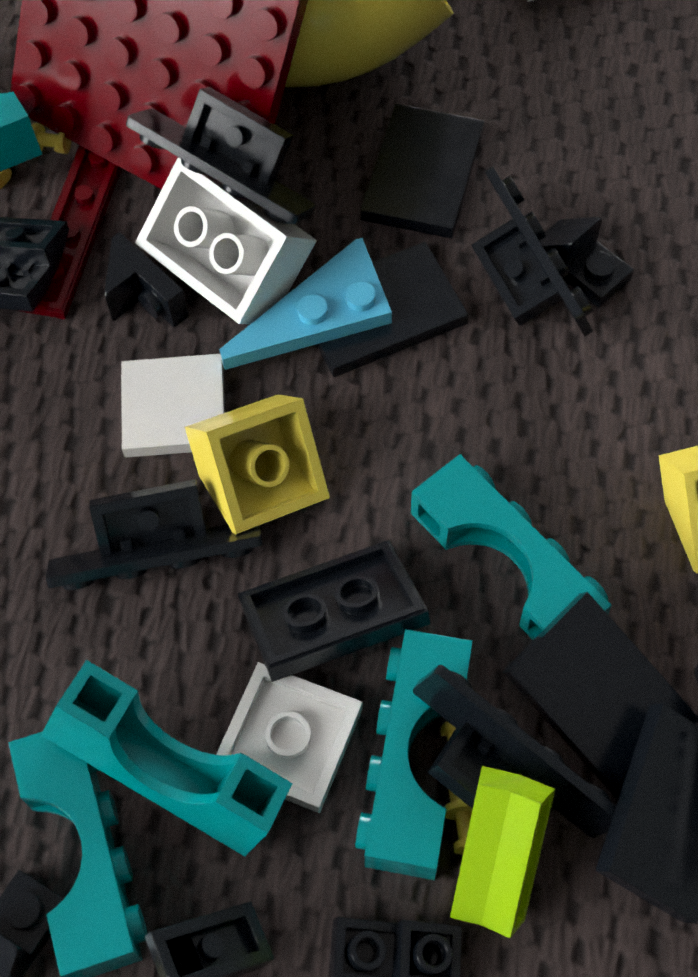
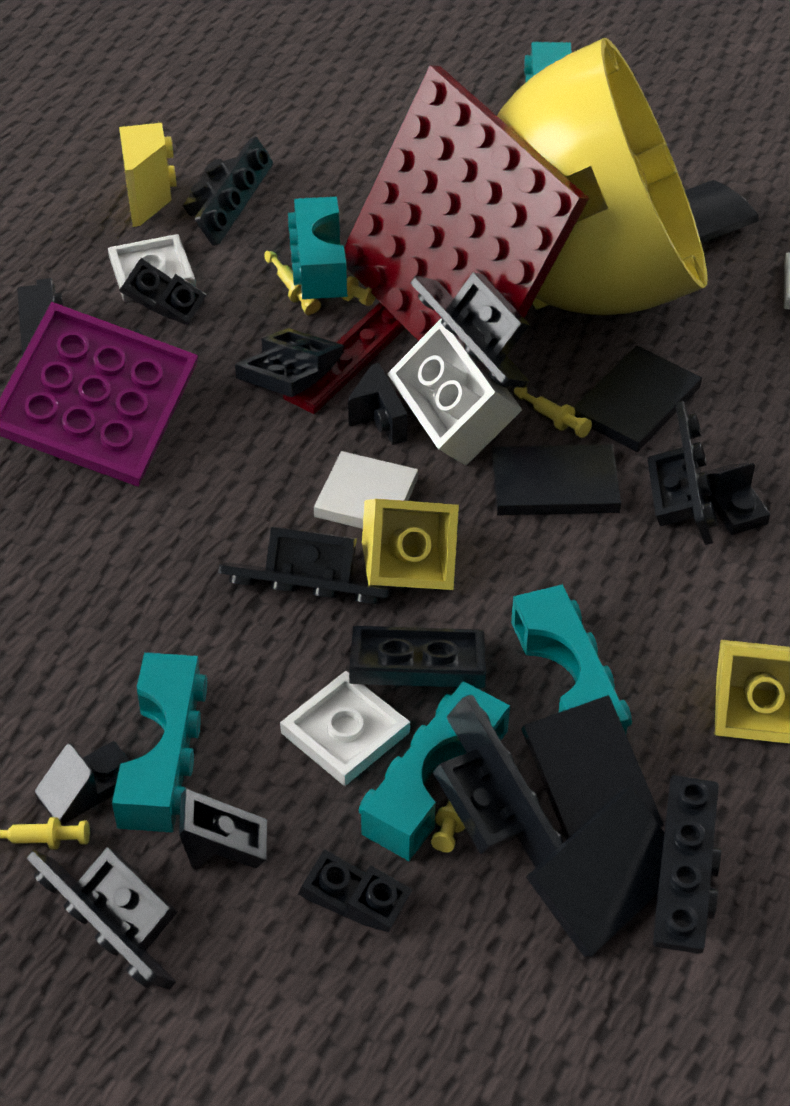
camera: 20 degrees right, 15 degrees down
(218, 794) = (216, 659): teal arch -> none
(328, 305) = (516, 461): medium azure wing -> none
(352, 223) = (562, 416): none -> light yellow piece
(502, 850) = (461, 840): lime piece -> none

